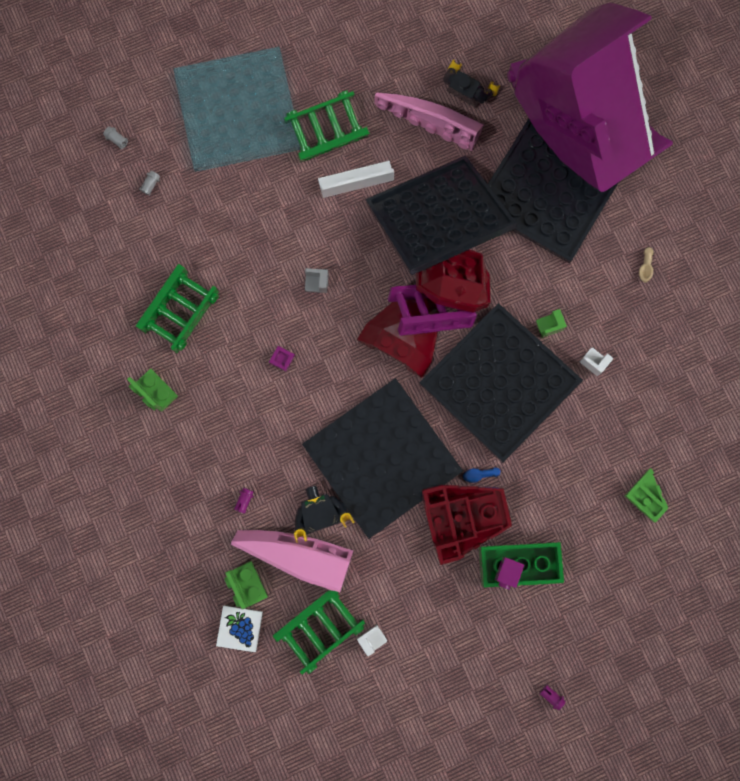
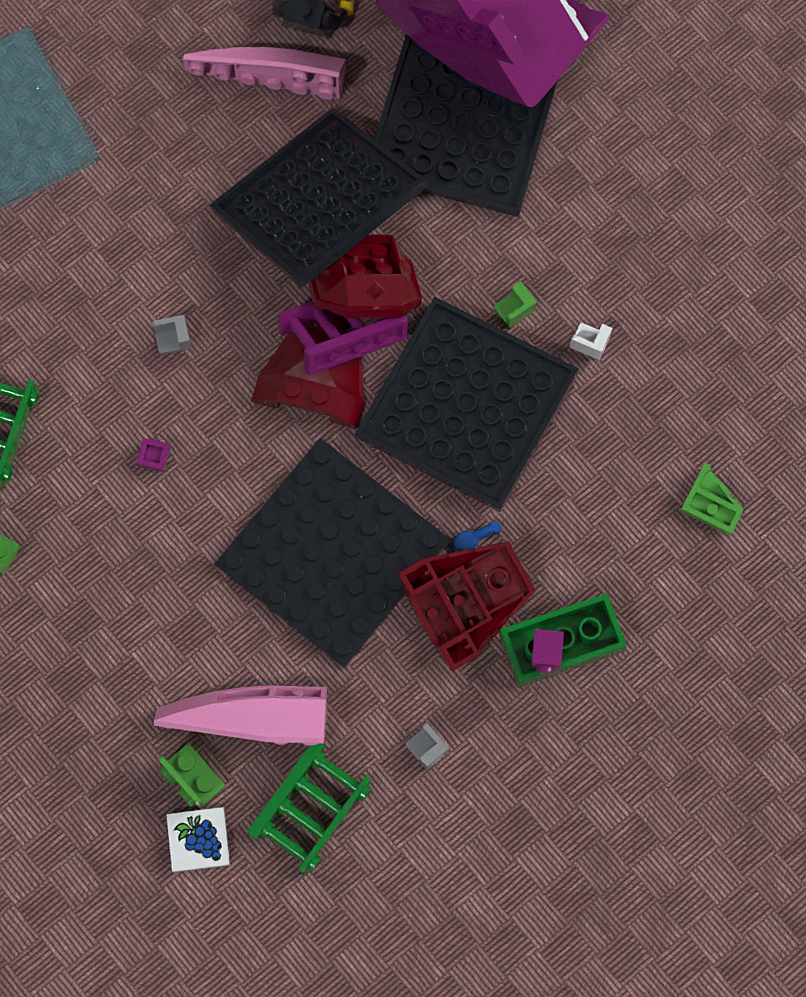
camera: 15 degrees left, 5 degrees down
(244, 499) = (155, 662): magenta pin -> none
(319, 513) = (266, 650): black torso -> none
(324, 145) = (151, 131): green fence -> none
(356, 179) = (188, 180): white panel -> none
(371, 640) = (386, 801): white panel -> none
(409, 610) = (427, 747): none -> light grey panel
(552, 697) = (656, 808): magenta pin -> none
(646, 269) = (626, 197): tan piece -> none

